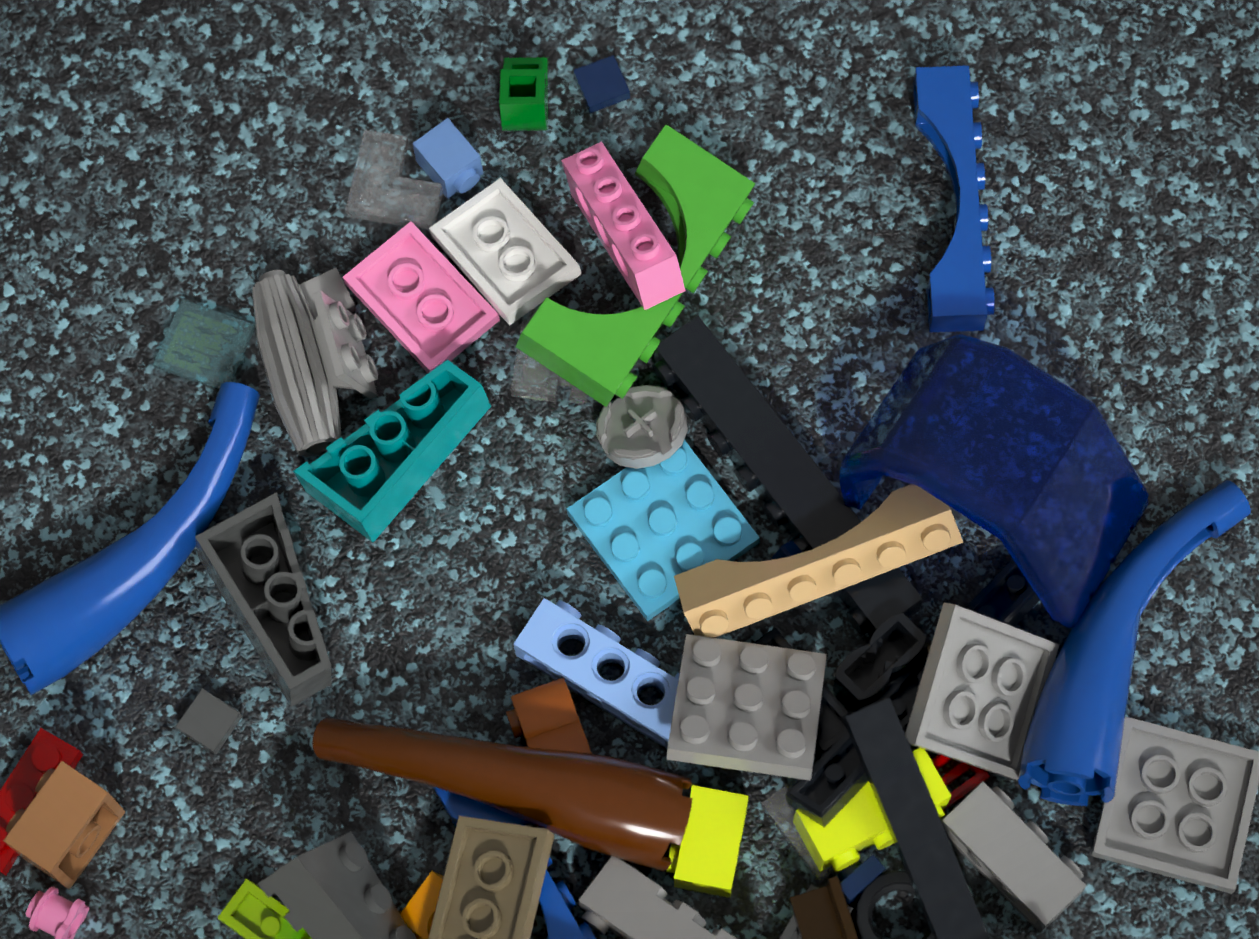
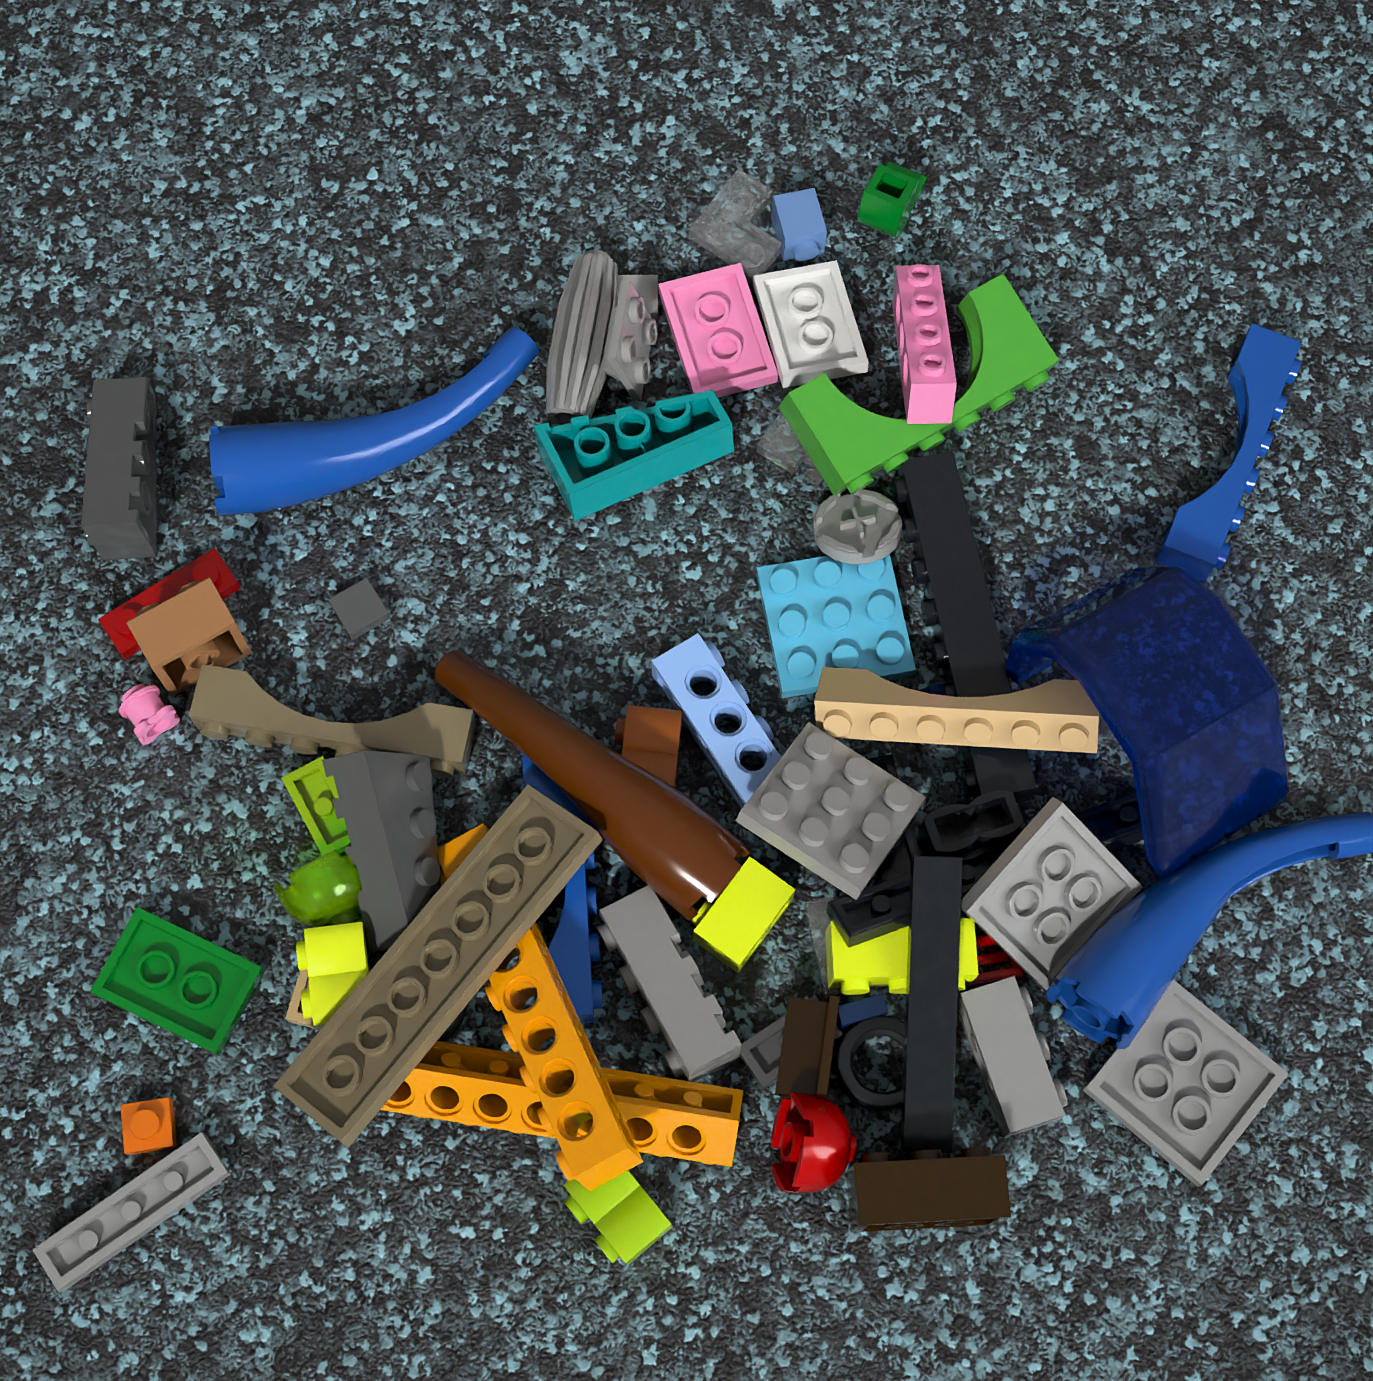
camera: 20 degrees right, 0 degrees up
(141, 868) = (235, 705): none -> dark tan arch
(204, 345) = (513, 290): clear light blue piece -> none
(266, 591) = (460, 514): dark grey wedge -> none
(601, 84) = (964, 221): dark blue tile -> none

